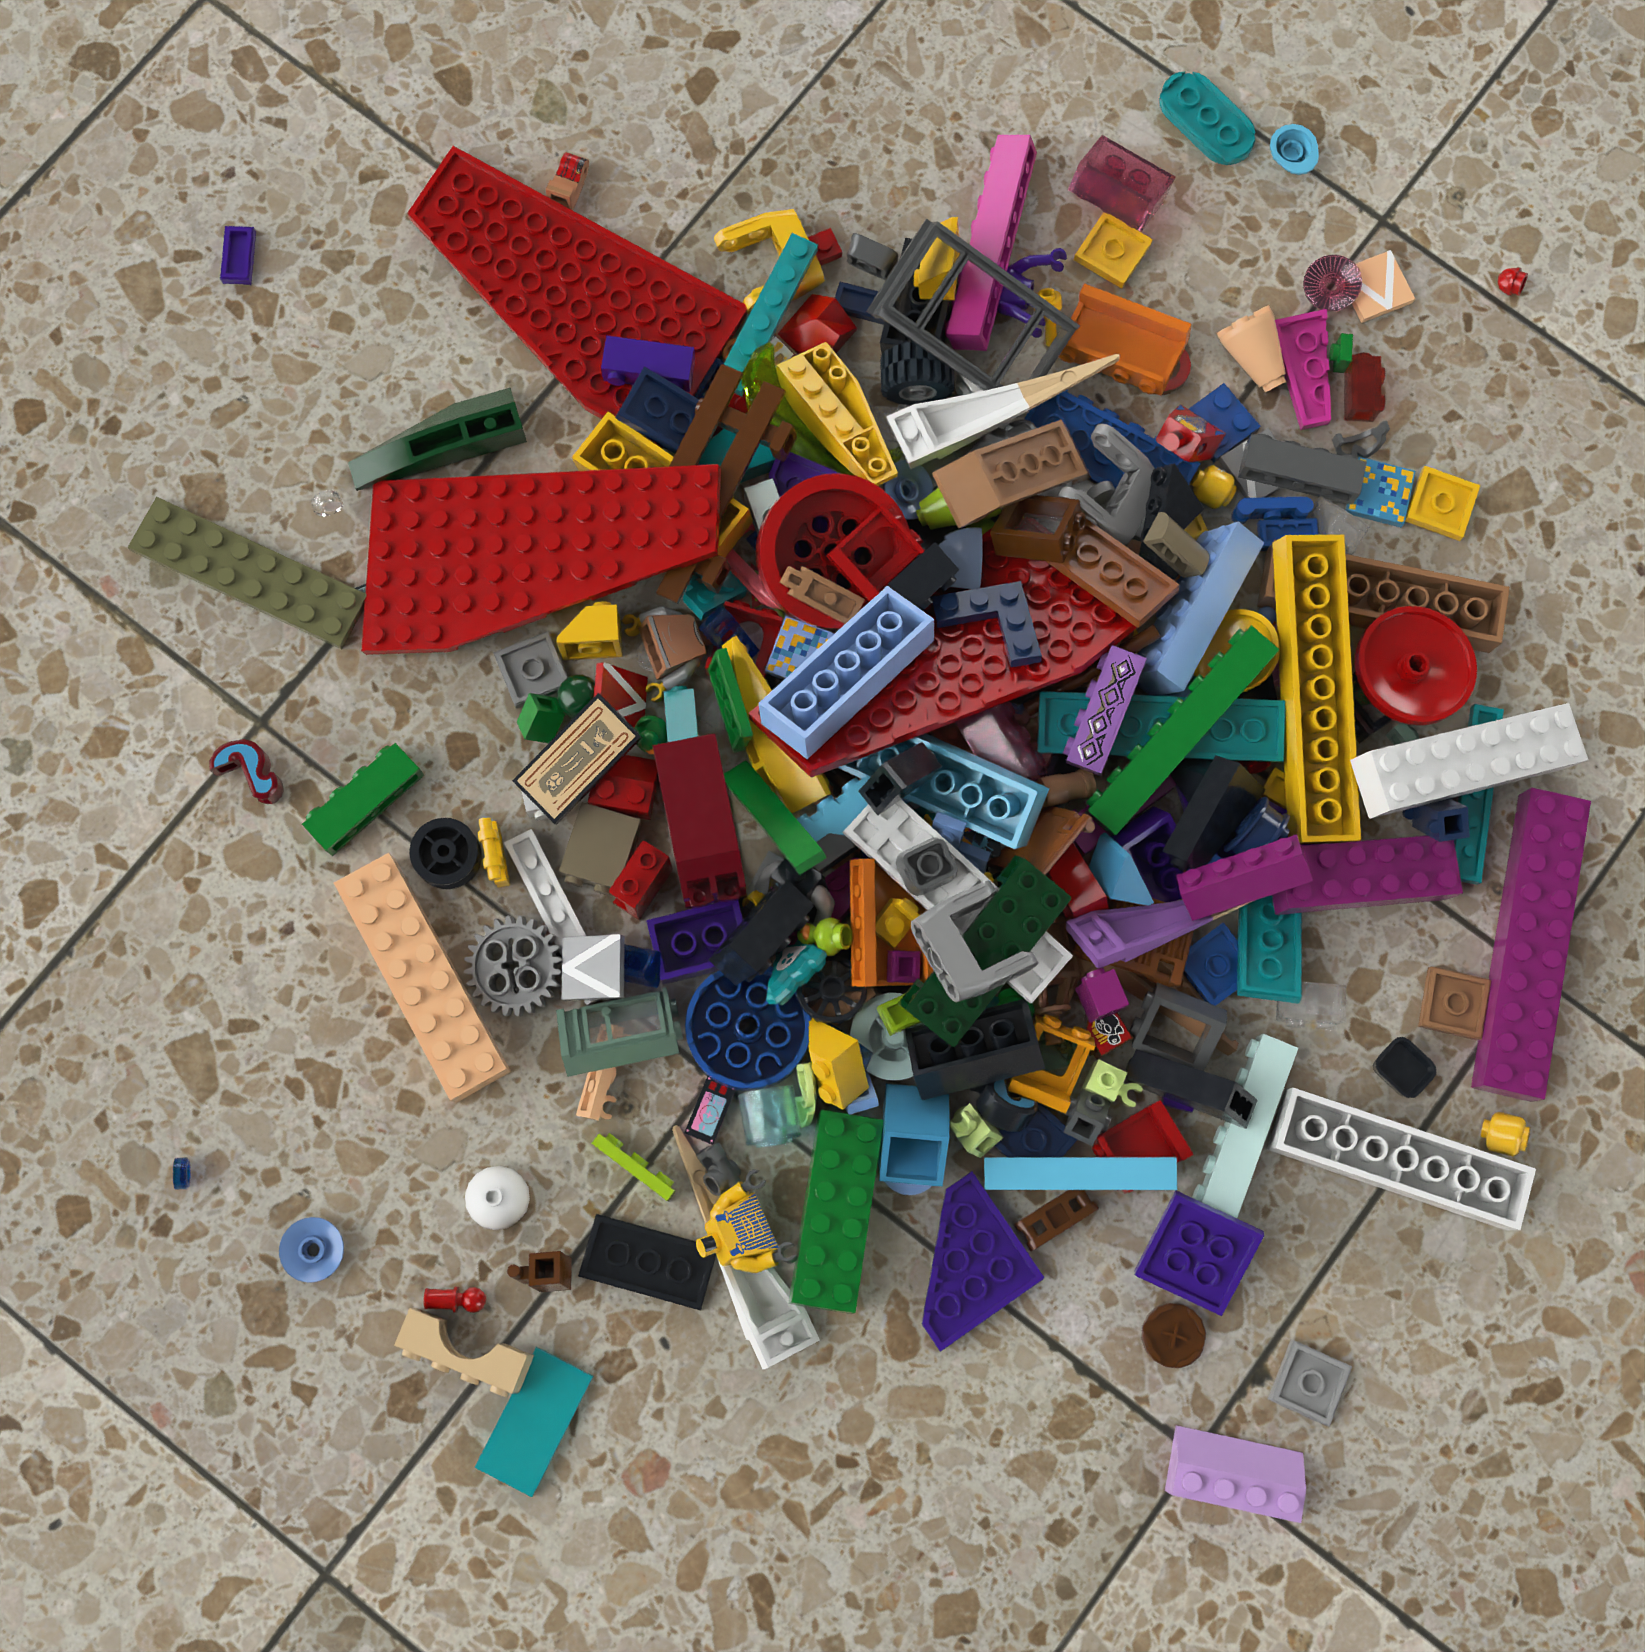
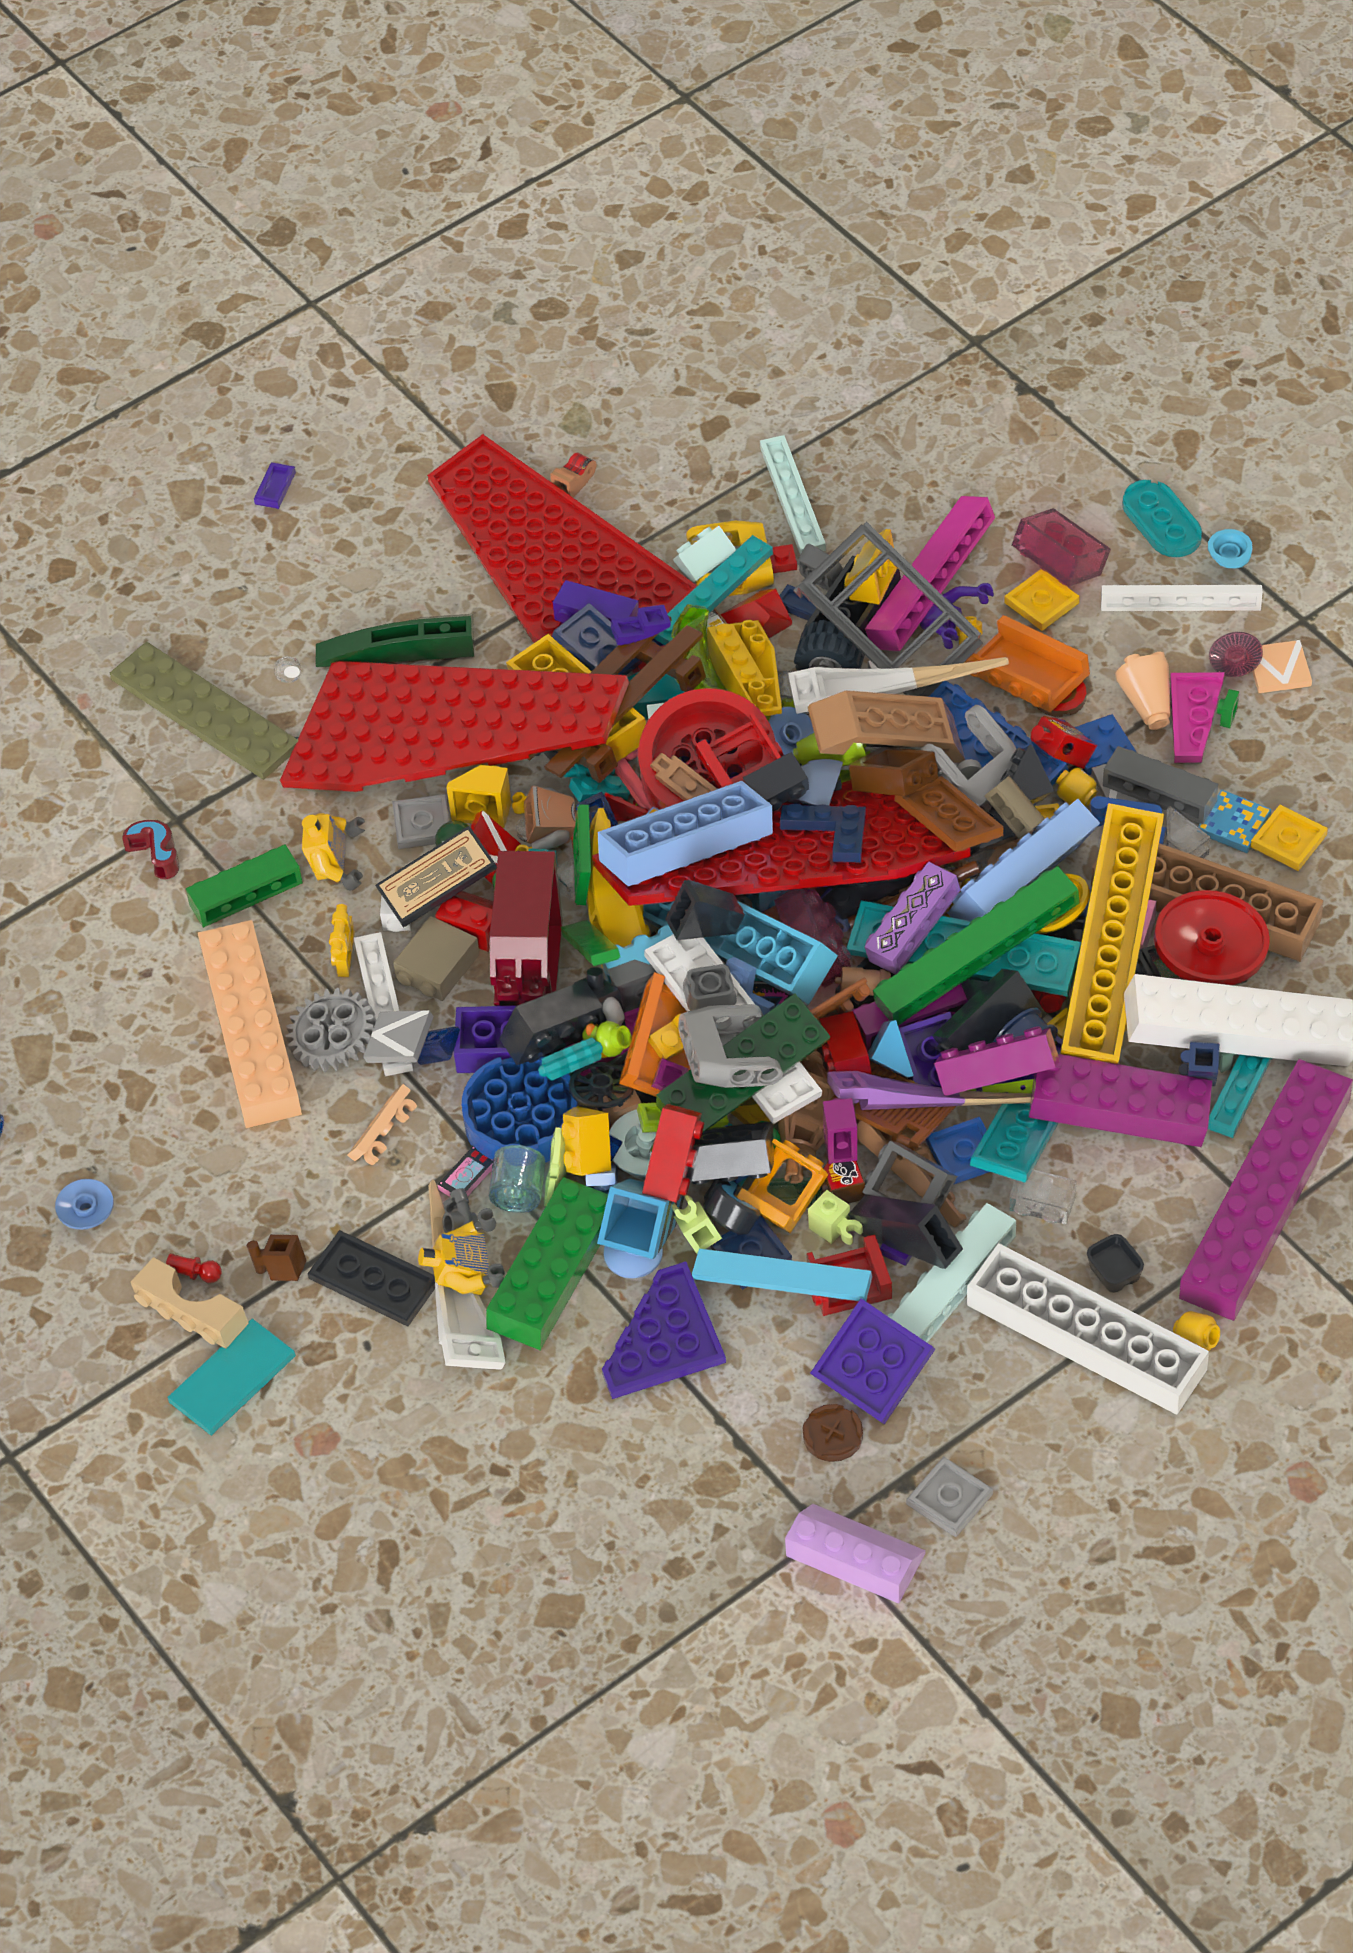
camera: 25 degrees right, 25 degrees down
(439, 733) = (325, 847): none -> yellow torso
(456, 867) = (300, 935): black wheel -> none
(497, 1197) = (257, 1200): white cylinder -> none
(540, 718) = (412, 849): green panel -> none
(618, 1032) = (404, 1089): sand green door -> none
(635, 1165) = (385, 1199): lime plate -> none
(641, 879) = (462, 978): red panel -> none
(716, 390) = (646, 624): none -> dark purple slope
(744, 264) = (704, 554): none -> light aqua brick
(813, 163) = (791, 493): none -> light aqua plate
(944, 1080) = (673, 1153): none -> brick
(1055, 1217) = (753, 1315): reddish brown plate -> none
(1087, 1117) = (804, 1236): dark grey brick -> none
(1257, 220) = (1181, 597): none -> white plate
(1363, 388) = (1240, 738): clear red brick -> none
(1378, 432) = (1242, 772): dark grey helmet -> none
(1454, 1003) = (1179, 1225): medium nougat tile -> none

